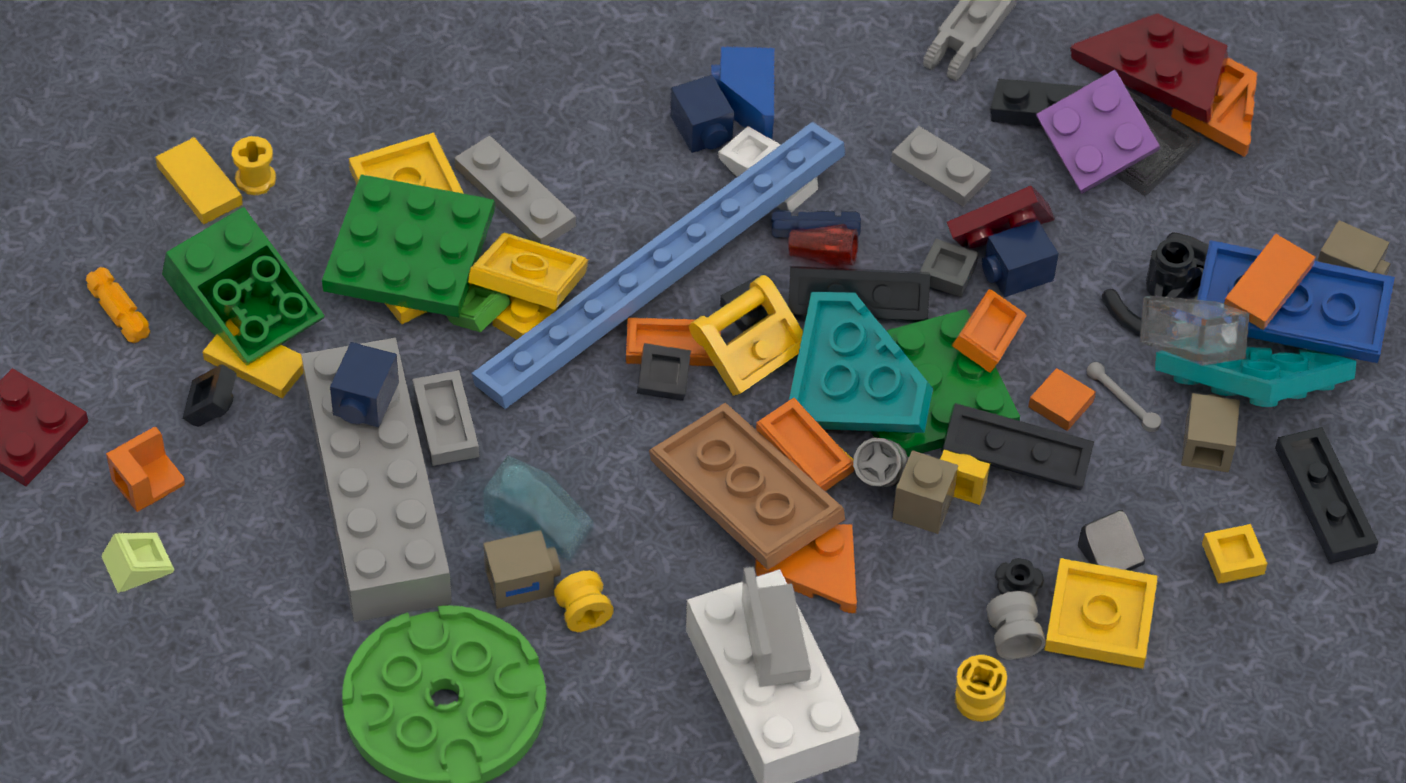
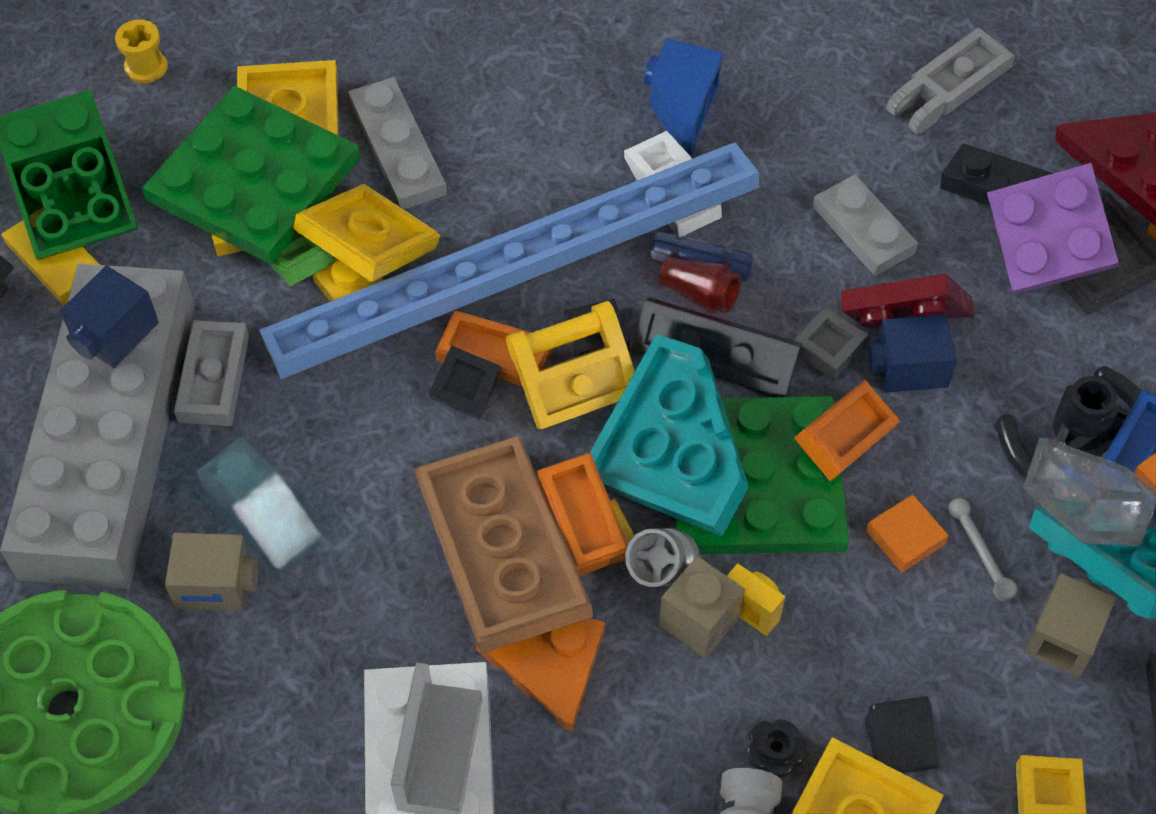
camera: 20 degrees right, 5 degrees up
(199, 180) = (87, 53): yellow tile -> none
(583, 601) = (263, 631): yellow wheel -> none
(702, 114) = (623, 105): dark blue brick -> none
(1018, 446) = (831, 580): black plate -> none

